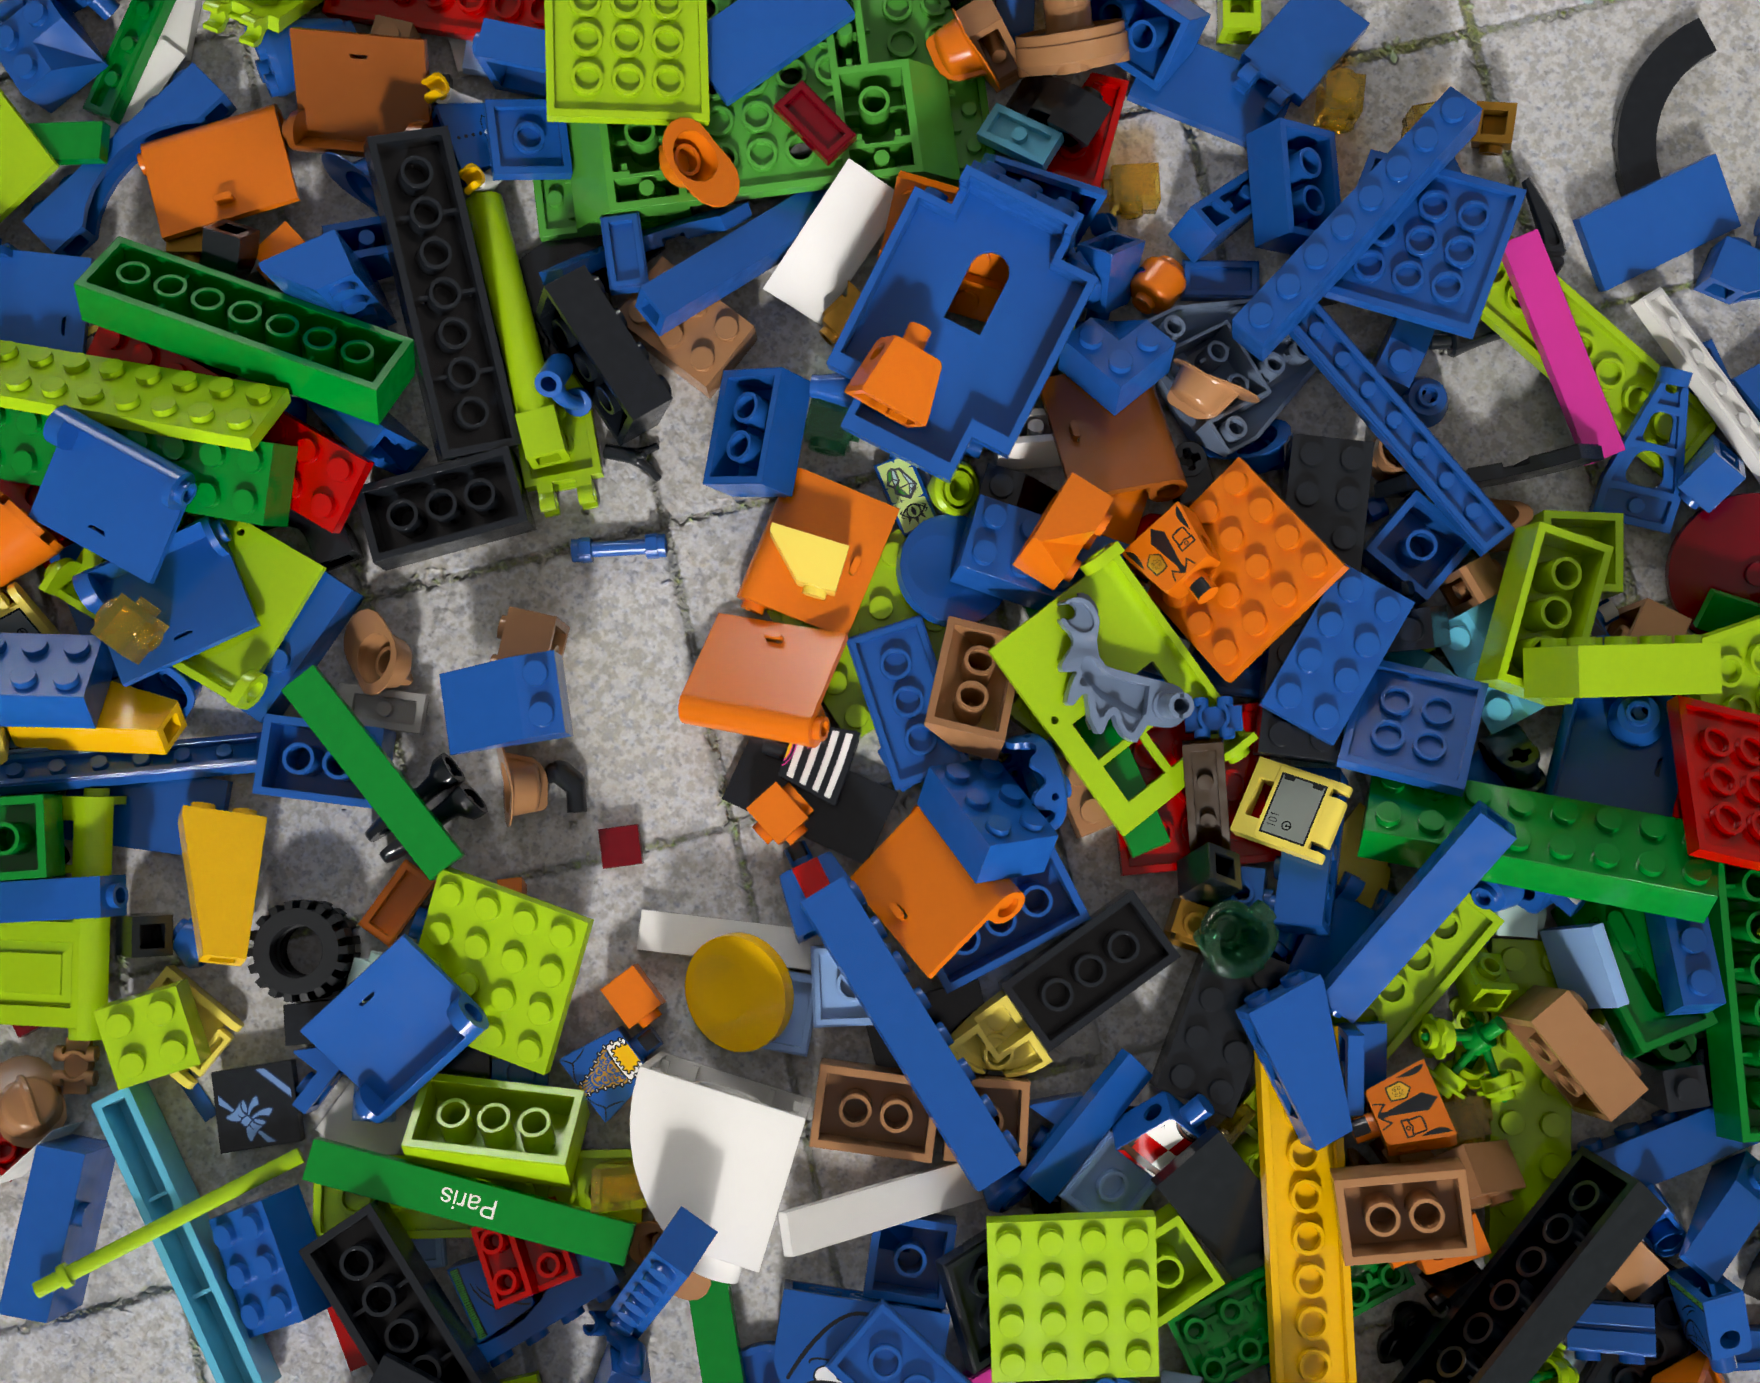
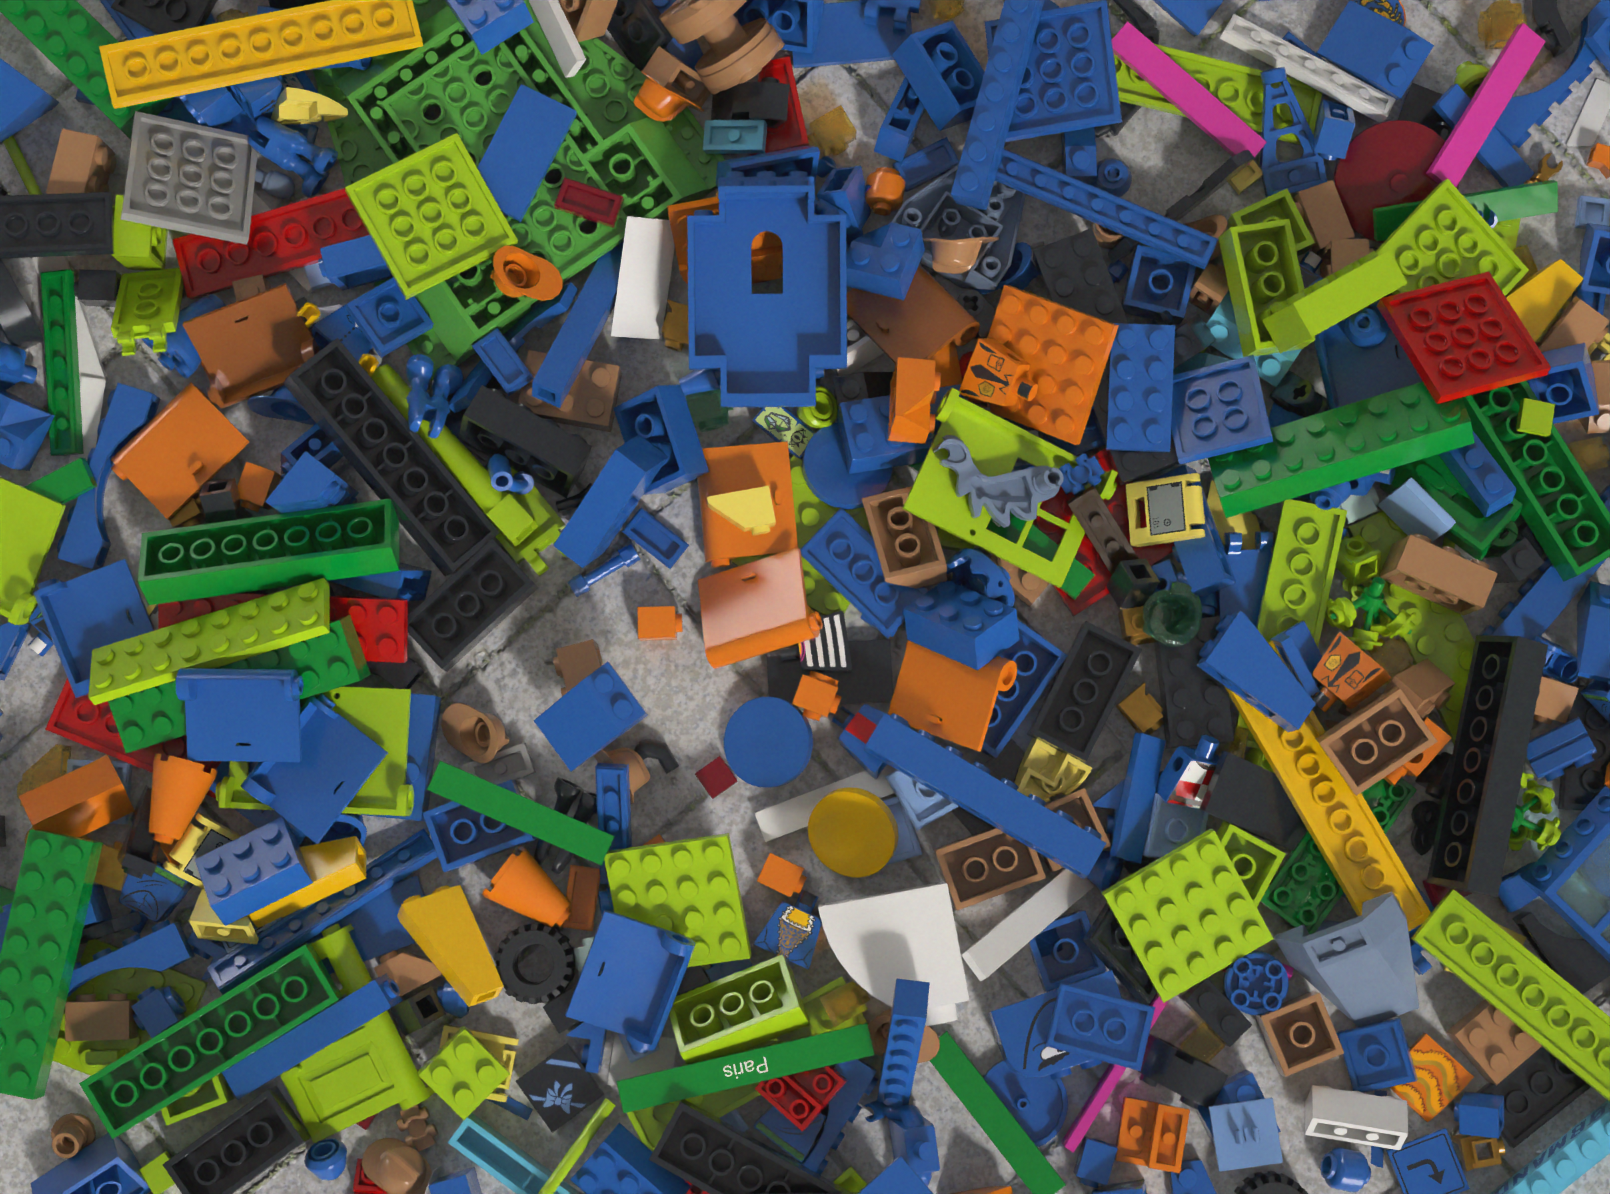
camera: 25 degrees left, 0 degrees up
(129, 627) = (301, 799): clear yellow brick -> none
(154, 882) = (407, 970): none -> medium nougat slope
(338, 863) = (528, 890): none -> orange cone
(484, 818) = (613, 806): none -> blue tile
(506, 252) = (422, 406): none -> blue piece
(647, 638) = (659, 623): none -> orange brick
(661, 470) = (610, 500): none -> blue brick
(695, 542) = (655, 538): none -> blue tile
(698, 837) = (768, 742): none -> blue piece
(899, 377) = (745, 352): orange torso -> none
(1143, 1025) = (1141, 711): none -> pearl gold window
(1418, 911) = (1282, 535): blue brick -> none
(1577, 479) = (1246, 177): none -> light yellow plate
(1648, 565) = (1323, 215): none -> medium nougat brick

